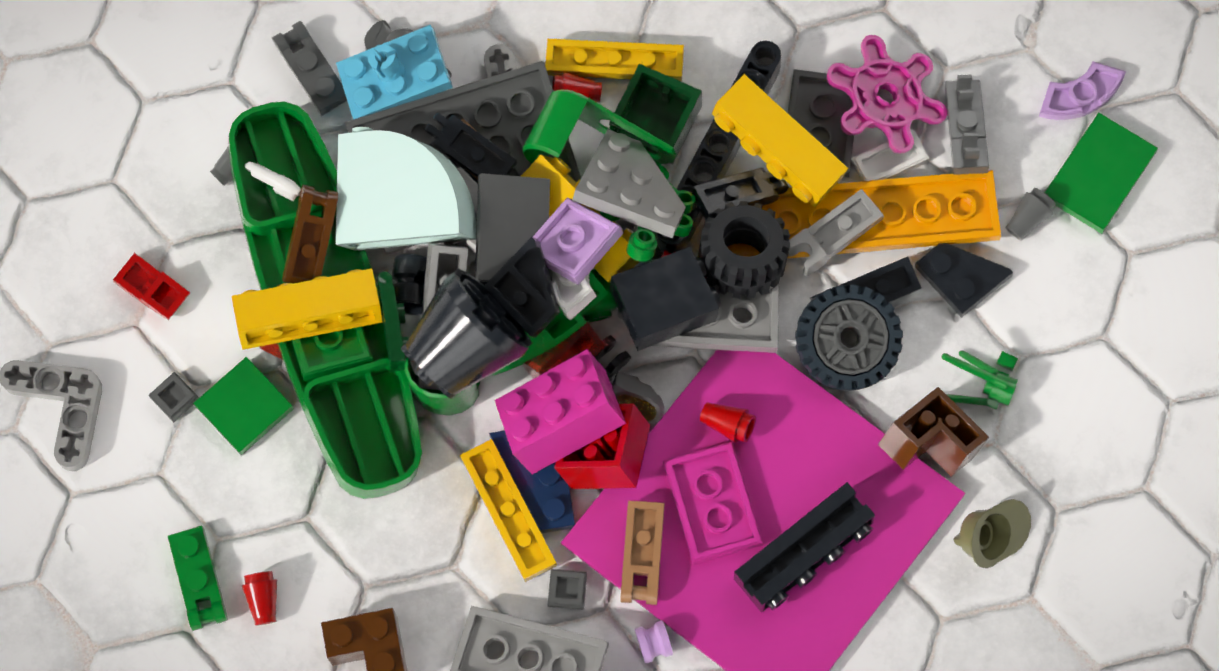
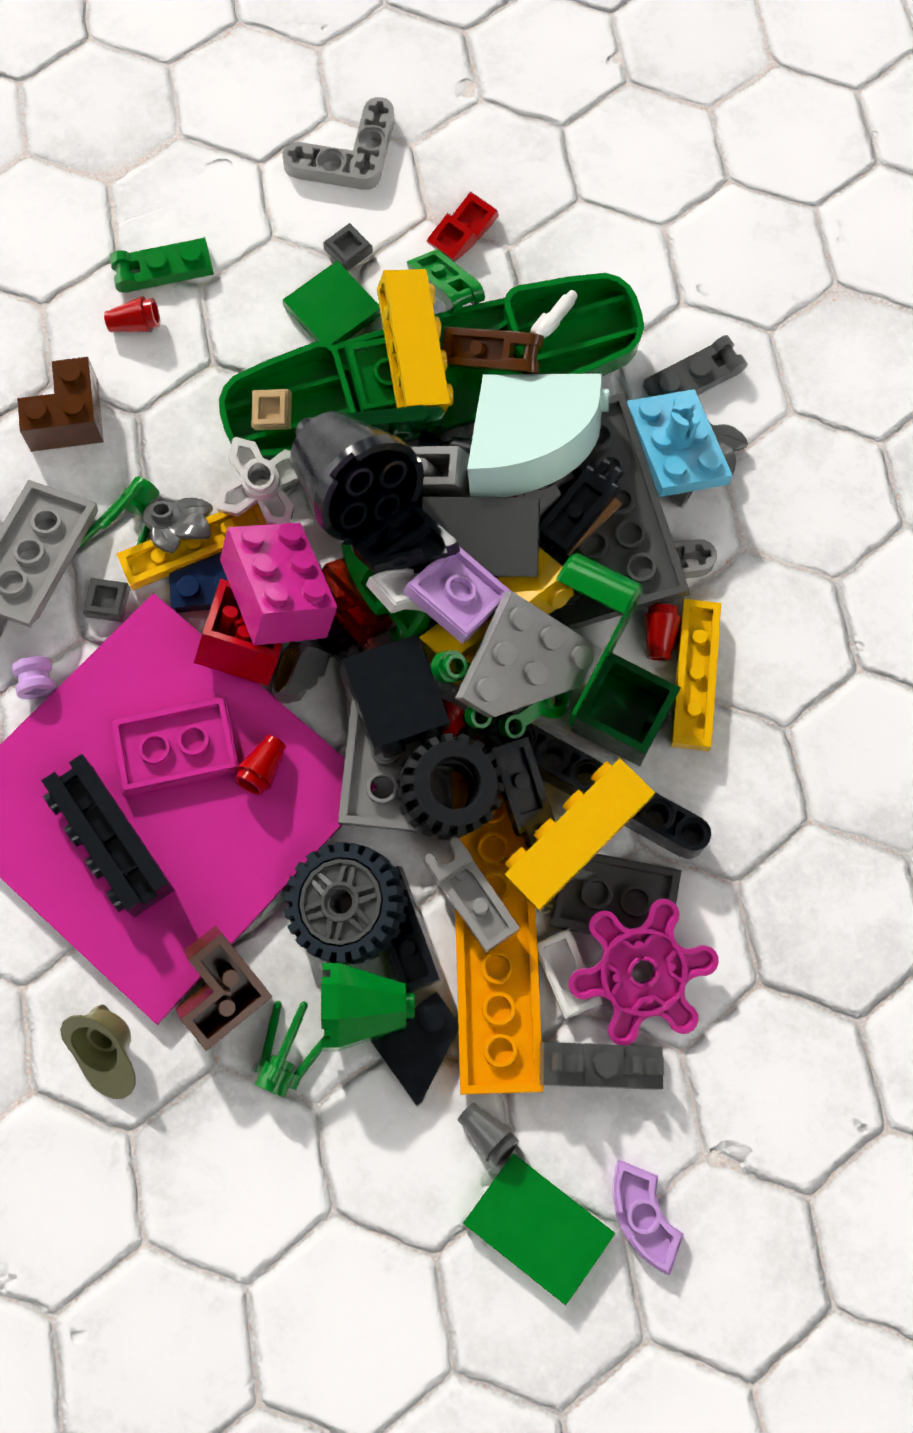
camera: 85 degrees right, 0 degrees up
(214, 297) = (450, 281): none -> green plate
(376, 437) = (271, 409): none -> tan tile
(450, 443) = (243, 493): none -> white plant
(465, 567) = (133, 499): none -> green plant
(489, 518) = (177, 521): none -> dark grey plate
(642, 551) = (127, 668): medium nougat plate -> none
(939, 318) = (360, 1006): none -> green cone
(1007, 361) = (312, 1090): green piece -> none

